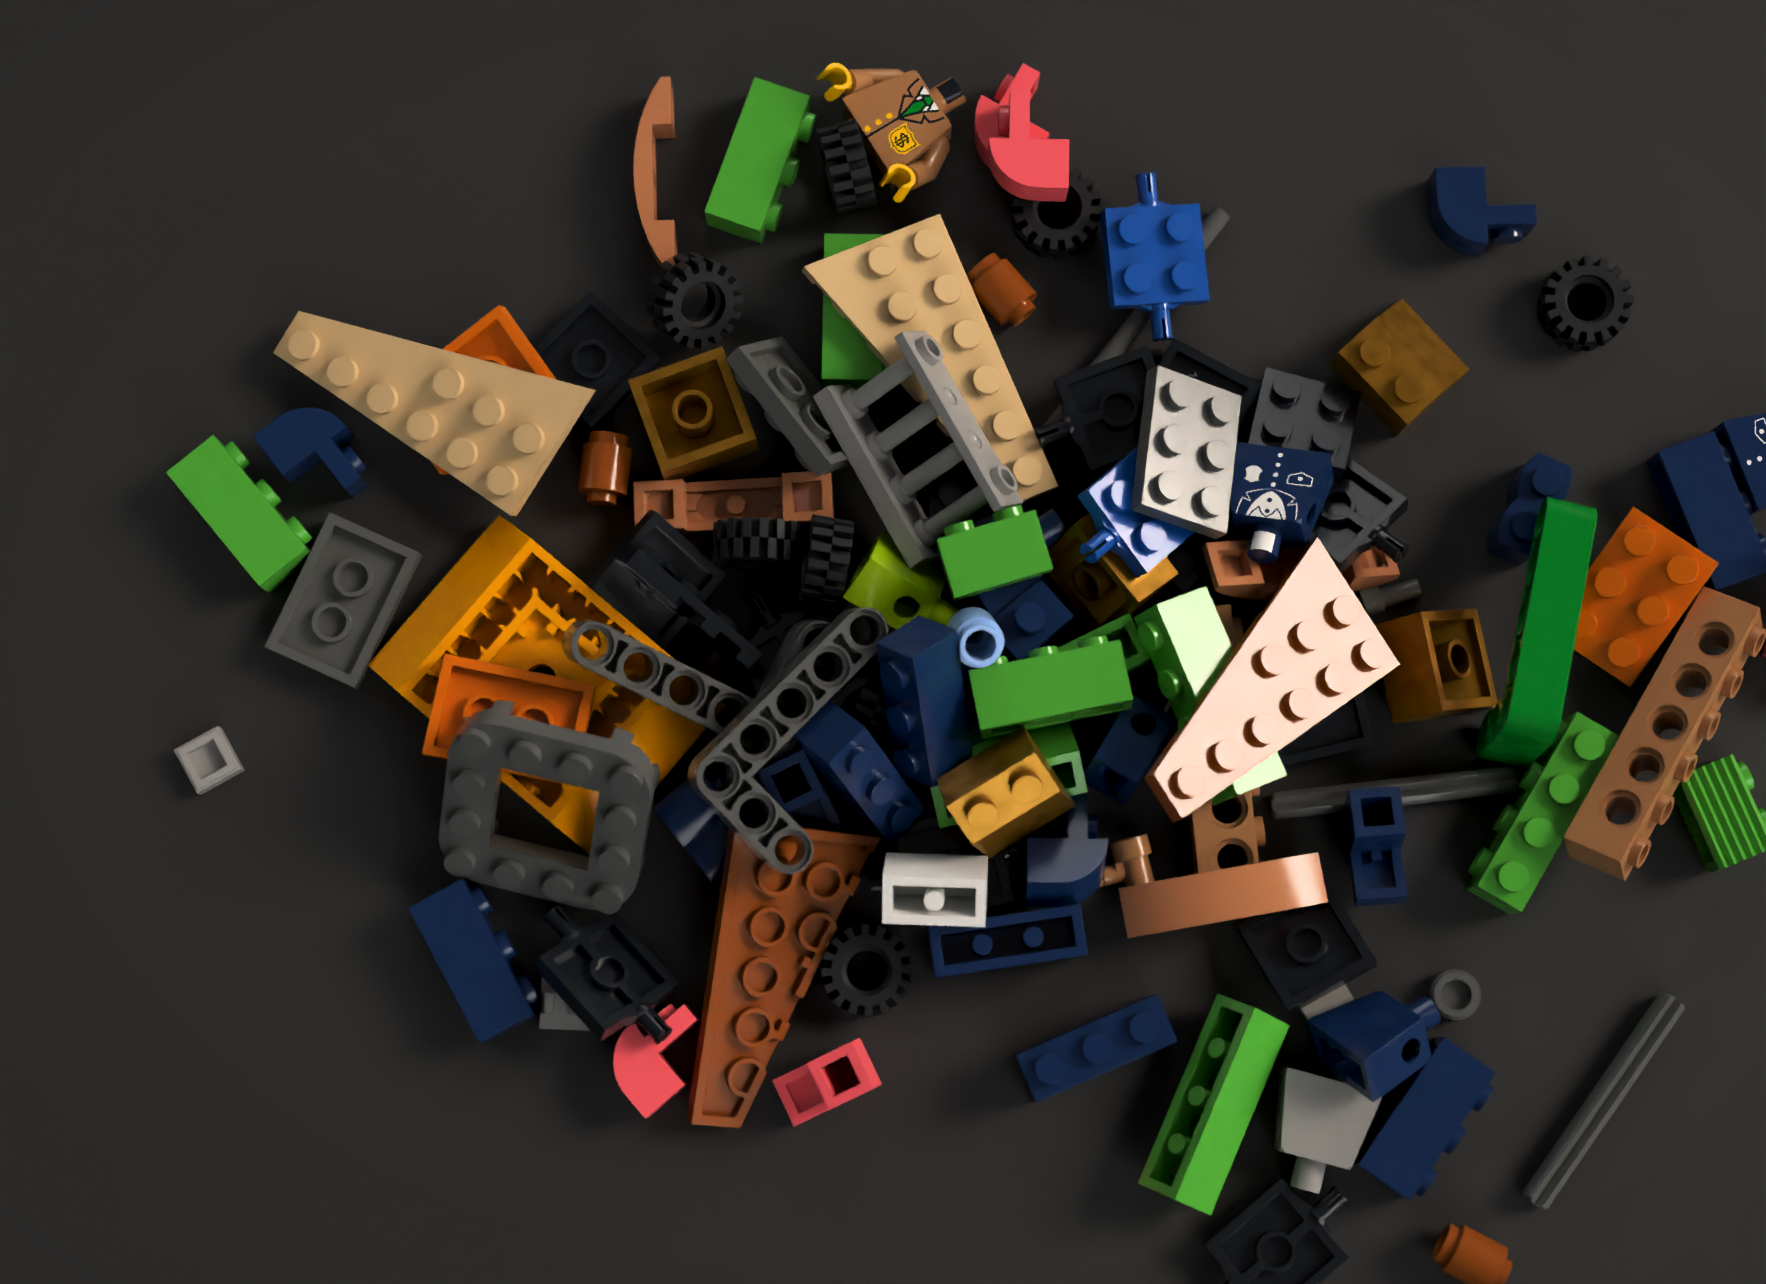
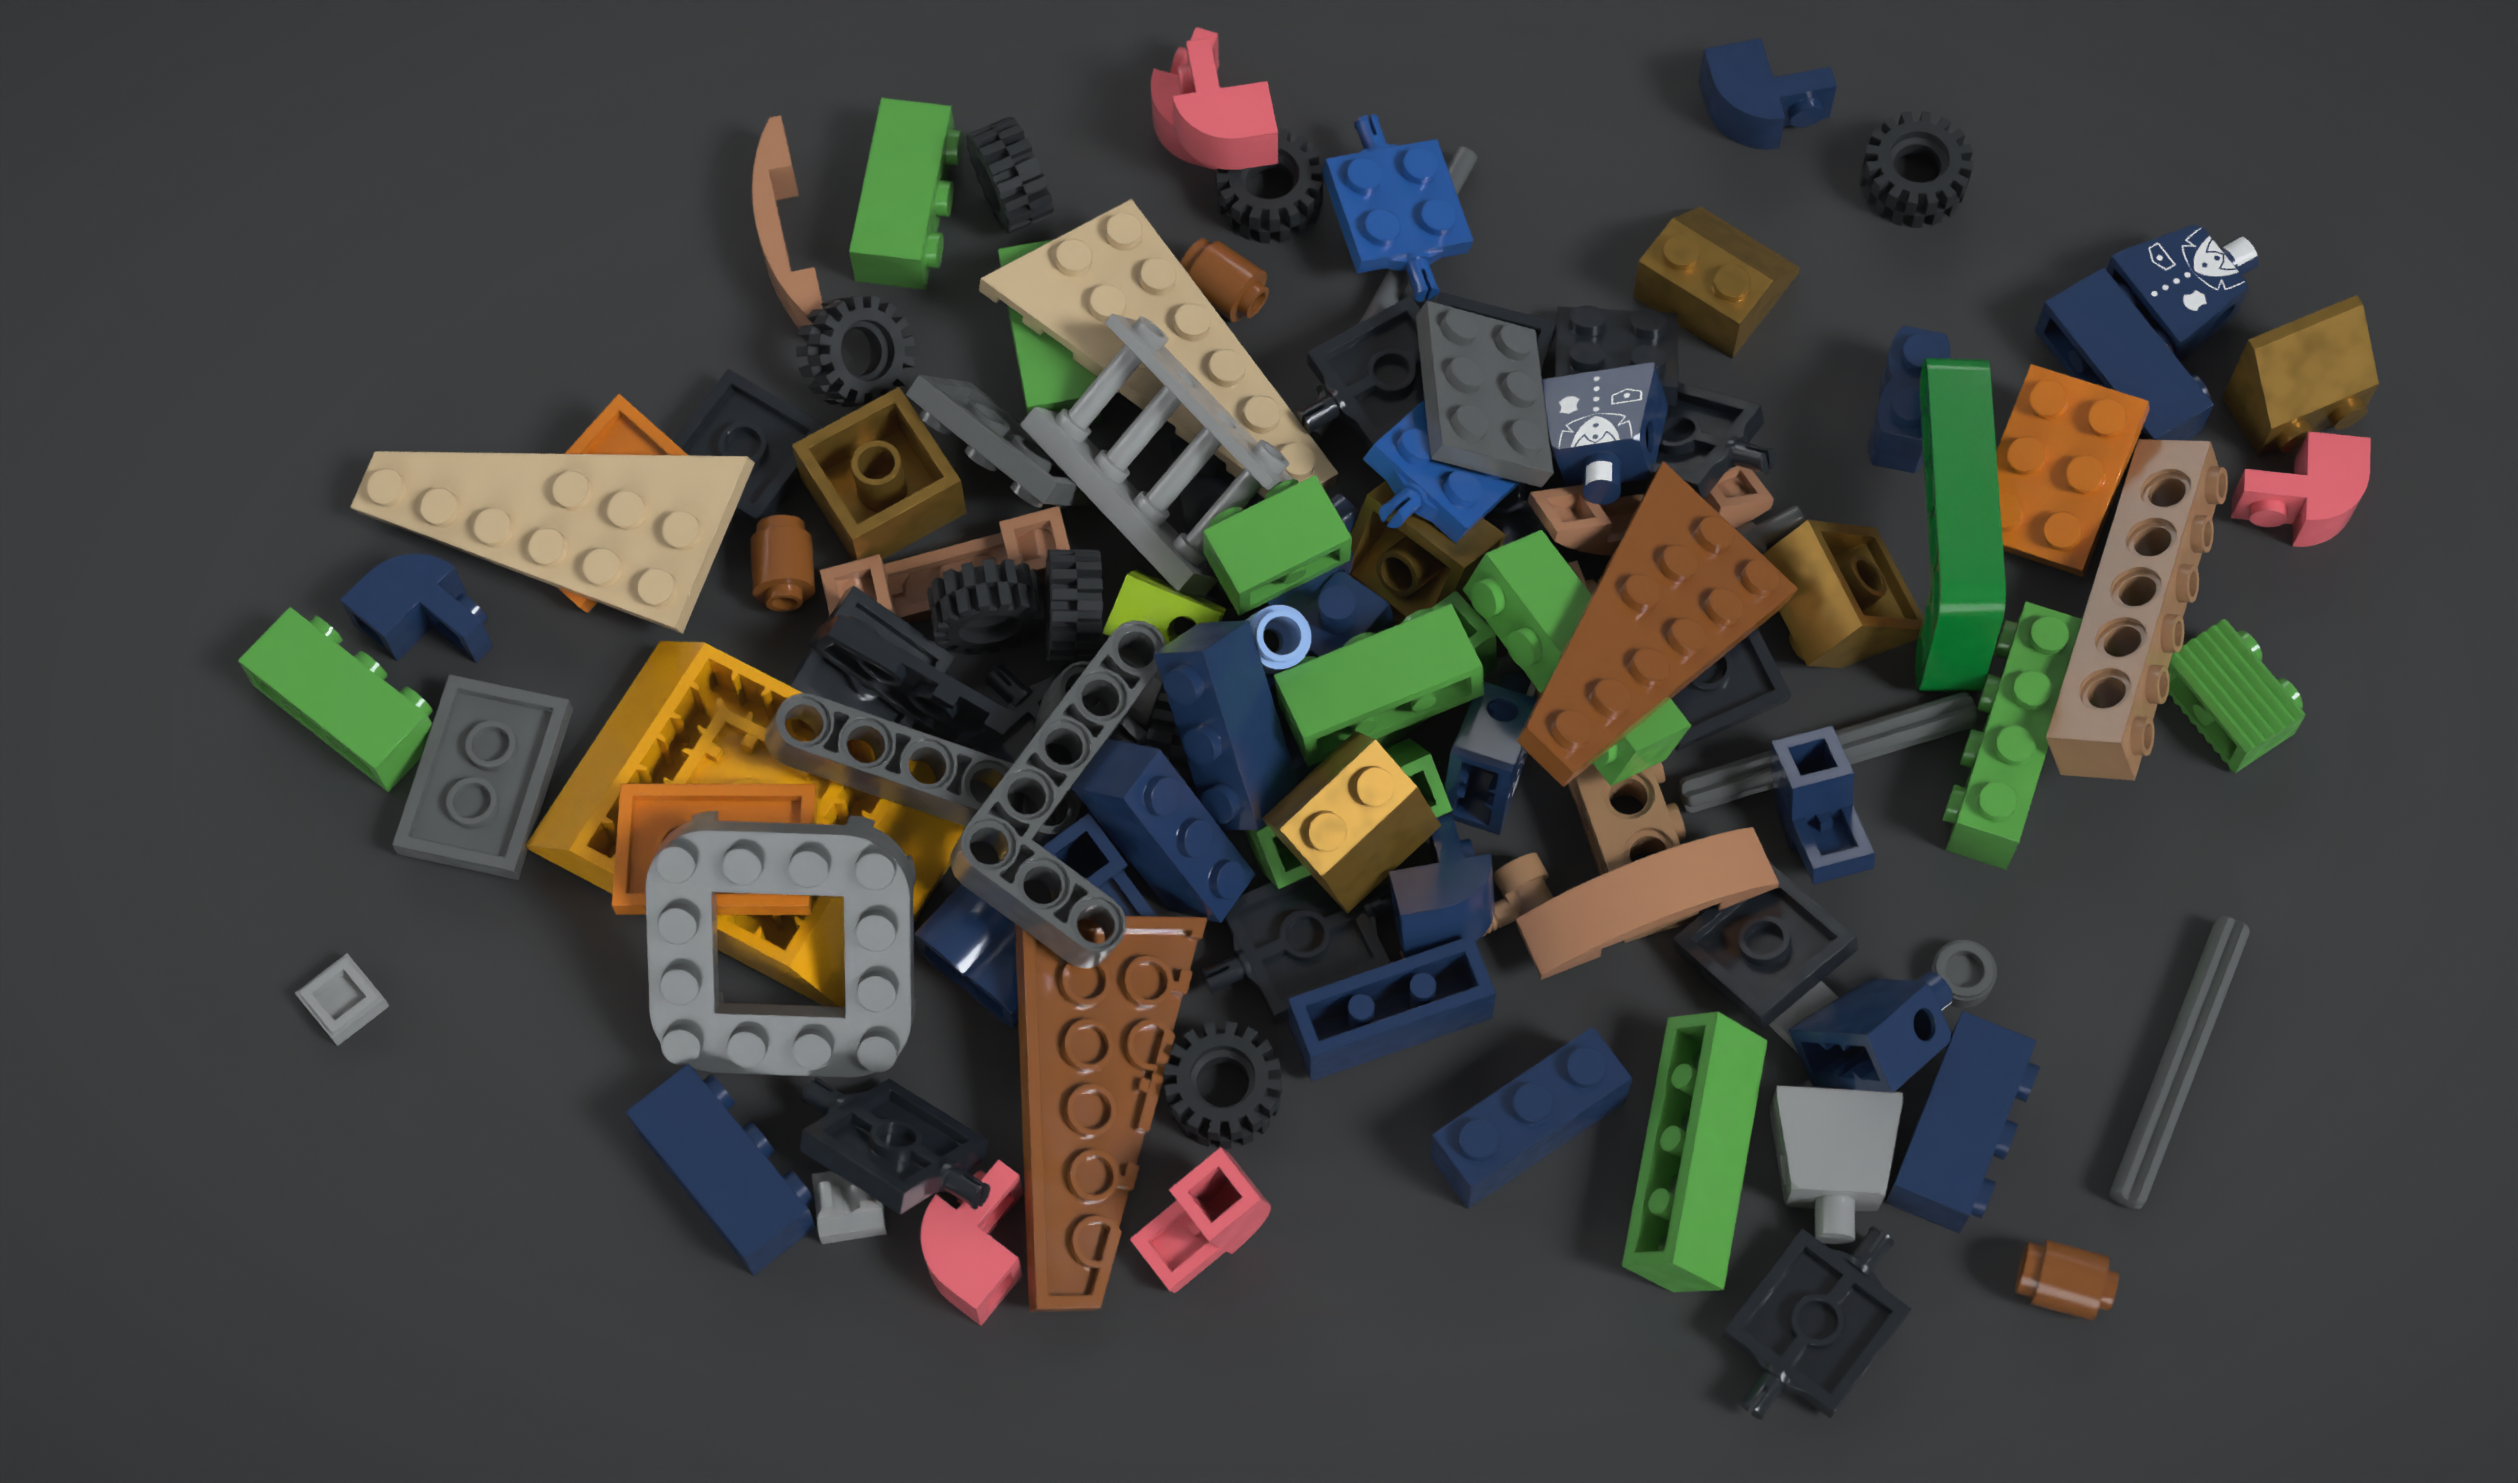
camera: 10 degrees left, 15 degrees down
(898, 120) = (1066, 115): medium nougat torso -> none
(934, 889) = (1288, 952): white brick -> none

